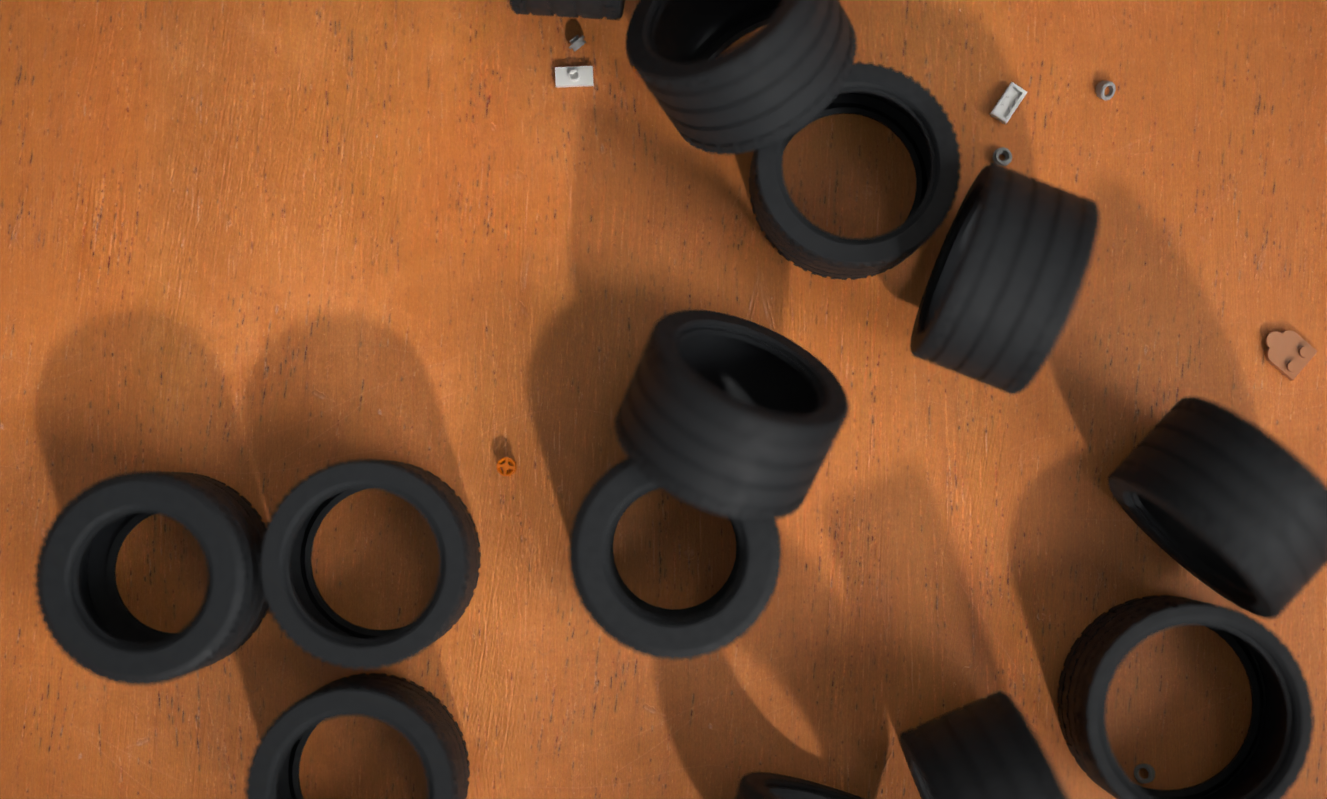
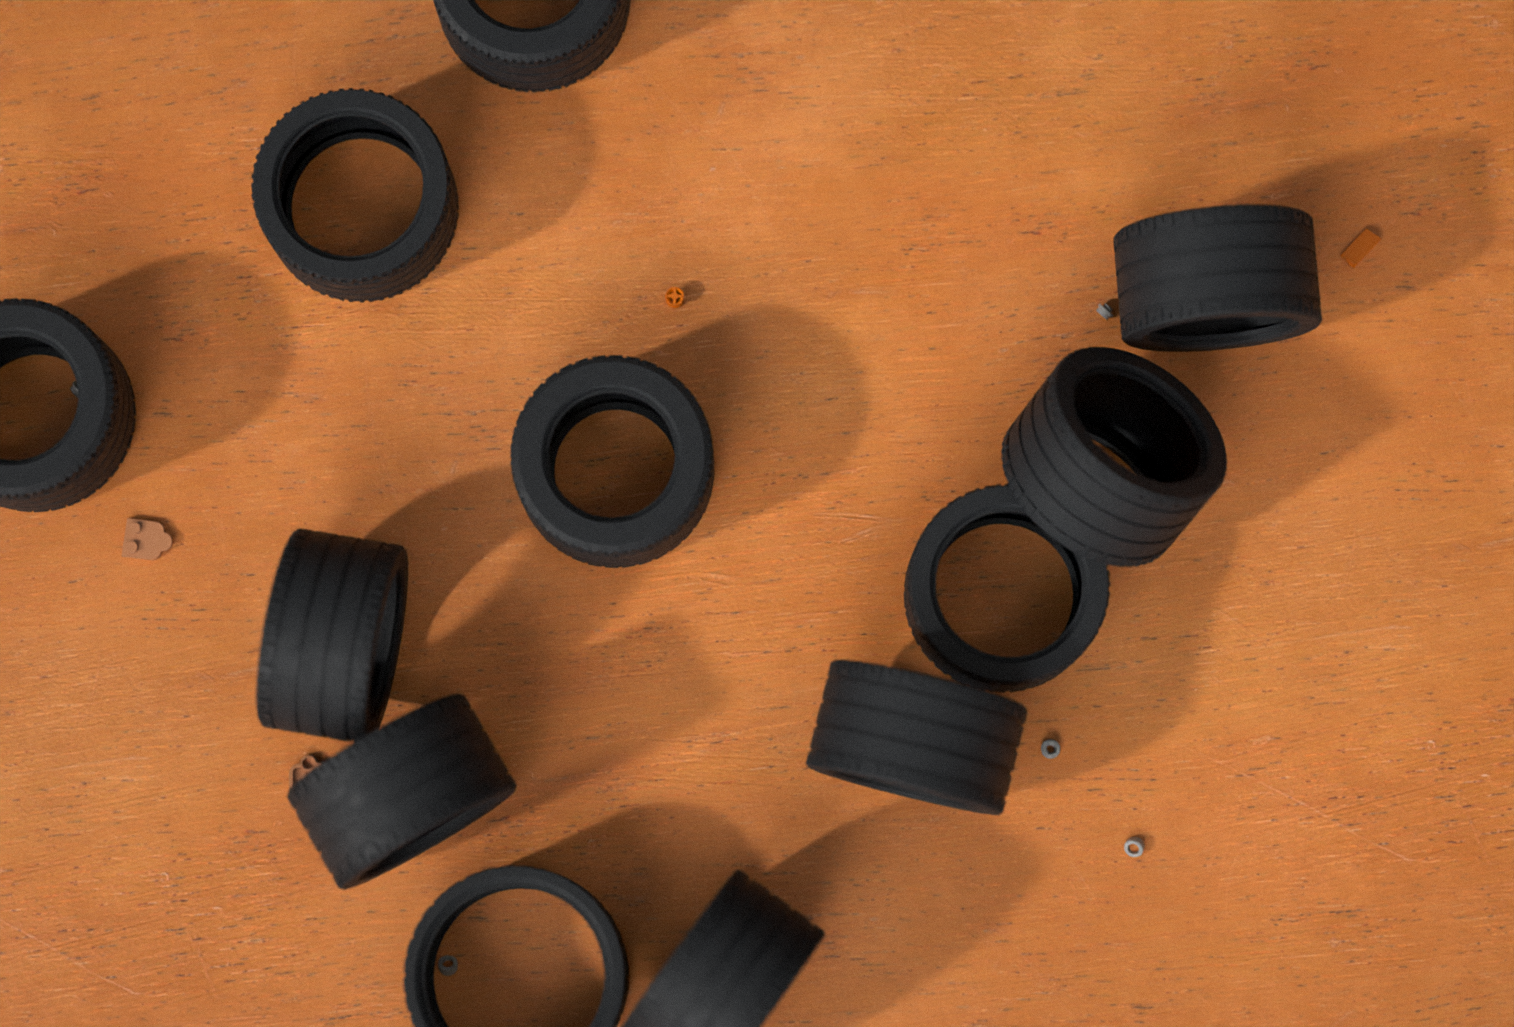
camera: 80 degrees right, 5 degrees down
(290, 580) = (552, 101): black tyre -> none
(574, 76) = (1071, 313): white plate -> none
(730, 415) = (750, 490): black tyre -> none
(1008, 103) = (1106, 748): white plate -> none

